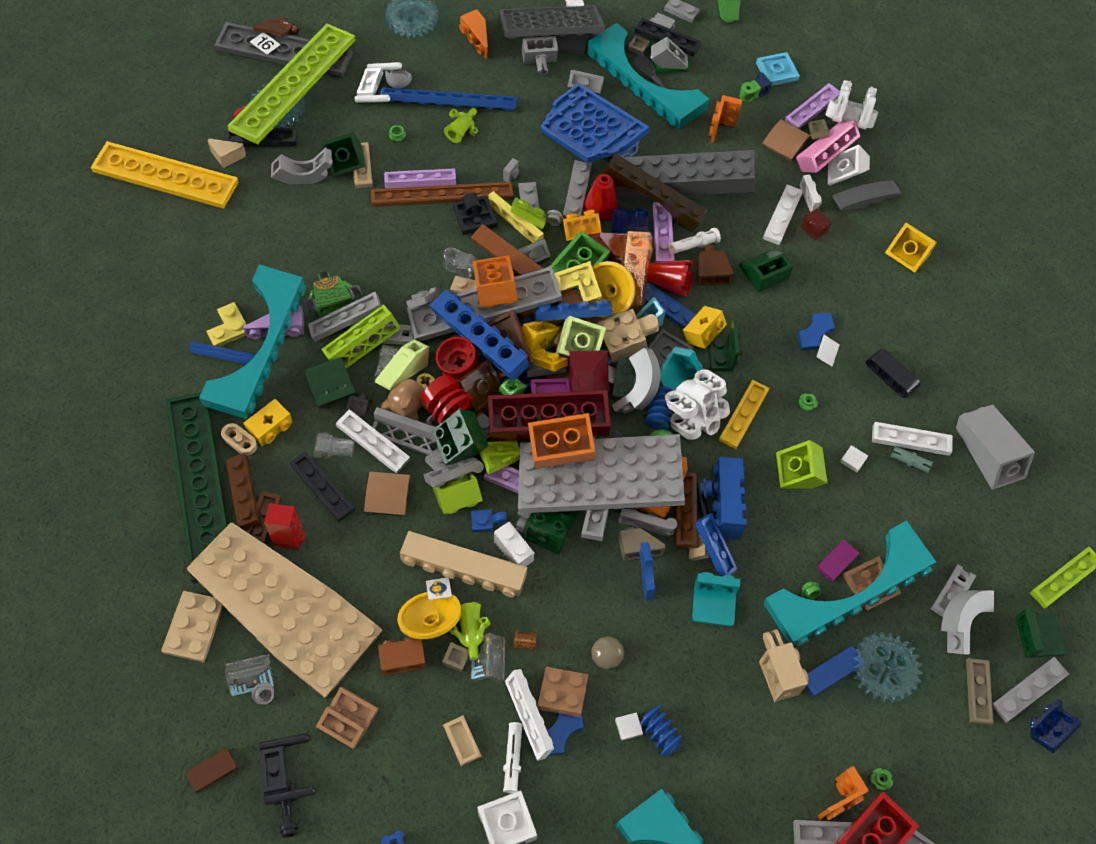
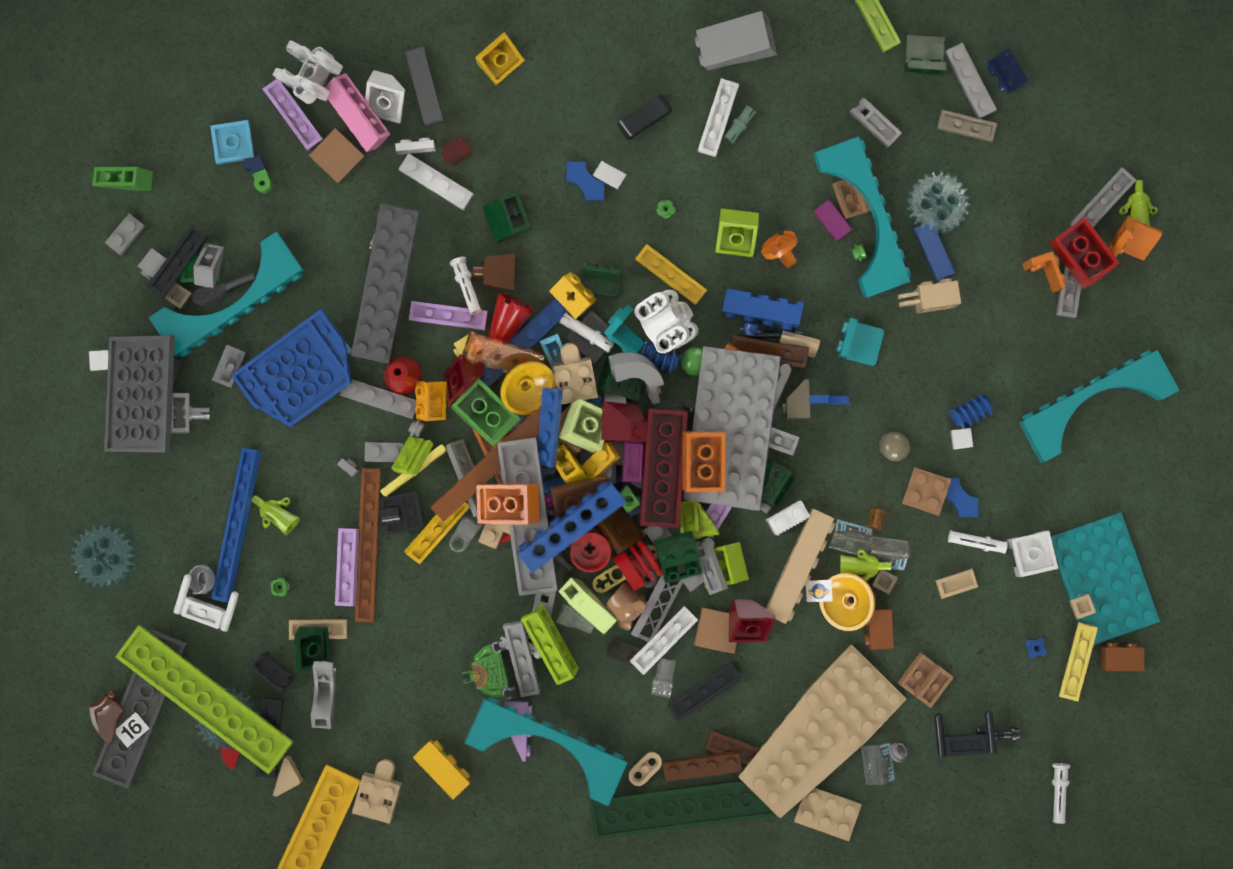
camera: 85 degrees left, 25 degrees up
(210, 218) = (377, 792): none -> tan brick
(211, 770) = (957, 797): reddish brown tile -> none
(221, 353) = (545, 779): blue axle -> none
(231, 329) = (513, 772): light yellow plate -> none
(235, 266) = (442, 768): none -> yellow brick
(268, 422) = (621, 735): yellow brick -> none
(284, 526) = (753, 727): red brick -> none
(319, 131) = (273, 672): none -> black hinge
(329, 382) = (597, 677): dark green bracket -> none
(397, 517) = (749, 622): none -> dark red slope
(423, 297) = (512, 577): light grey plate -> none
(457, 239) = (433, 534): none -> yellow plate
(474, 27) = (132, 483): orange slope -> none
(484, 520) = (755, 542): blue plate -> none
(502, 613) = (851, 537): none -> clear panel
(529, 714) = (950, 522): white plate -> none
(581, 276) = (513, 414): light yellow plate -> none
(629, 220) = (432, 348): clear blue bracket -> none
(671, 340) = (593, 336): none -> white pin
(683, 210) = (407, 318): dark brown arch -> none
(716, 545) = (813, 332): blue plate -> none
(727, 114) = (299, 213): orange bracket -> none
(798, 505) = (781, 248): none -> orange tile
(818, 129) = (330, 117): olive tile -> none
(854, 458) = (731, 179): white tile -> none
(877, 783) = (1031, 227): bright green plate -> none
(960, 615) = (900, 123): light grey arch -> none

